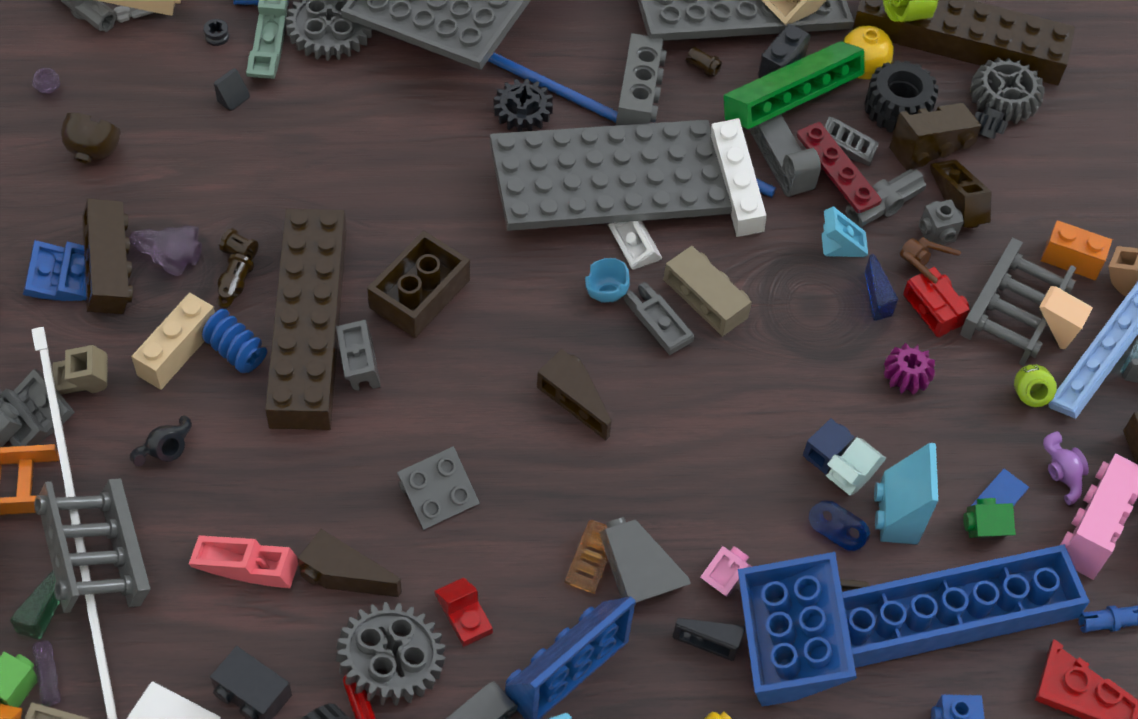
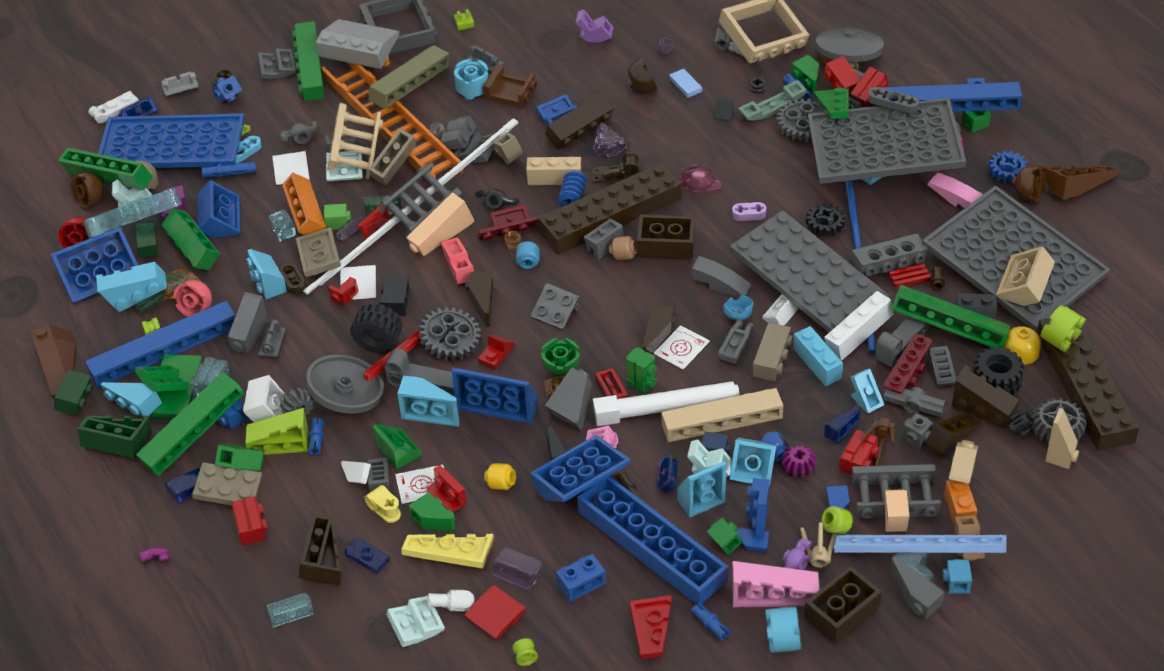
camera: 65 degrees right, 10 degrees down
(71, 634) = (367, 223): none -> red tile
(138, 101) = (685, 83): none -> light blue tile
(162, 547) = (441, 225): none -> light nougat slope
(224, 450) = (507, 221): none -> dark red bracket
(266, 474) = (512, 236): none -> clear orange bush
(310, 465) = (527, 255): none -> dark azure head
(337, 189) = (699, 179): none -> clear pink hat
(395, 344) = (623, 248): none -> medium nougat head
(432, 170) = (749, 211): none -> lavender beam
(536, 271) = (719, 277): none -> dark grey slope
(555, 532) = (560, 356): none -> green cylinder
(619, 382) = (681, 347): none -> white sticker
(631, 508) = (598, 376): none -> red tile
(649, 450) = (641, 370): none -> green brick
(681, 69) = (908, 274): none -> red tile
(708, 464) = (610, 409): none -> white brick
(752, 247) = (818, 356): none -> medium azure brick
(777, 408) = (722, 415): none -> tan brick
(868, 381) = (777, 440): none -> blue head
(880, 415) = (752, 460): none -> medium azure slope
(978, 451) = (758, 505): none -> blue plate
(991, 368) = (838, 496): none -> blue tile
(1030, 208) = (963, 461): none -> tan slope
(1054, 104) = (1062, 442): none -> tan slope
(1072, 435) = (819, 555): none -> tan plant

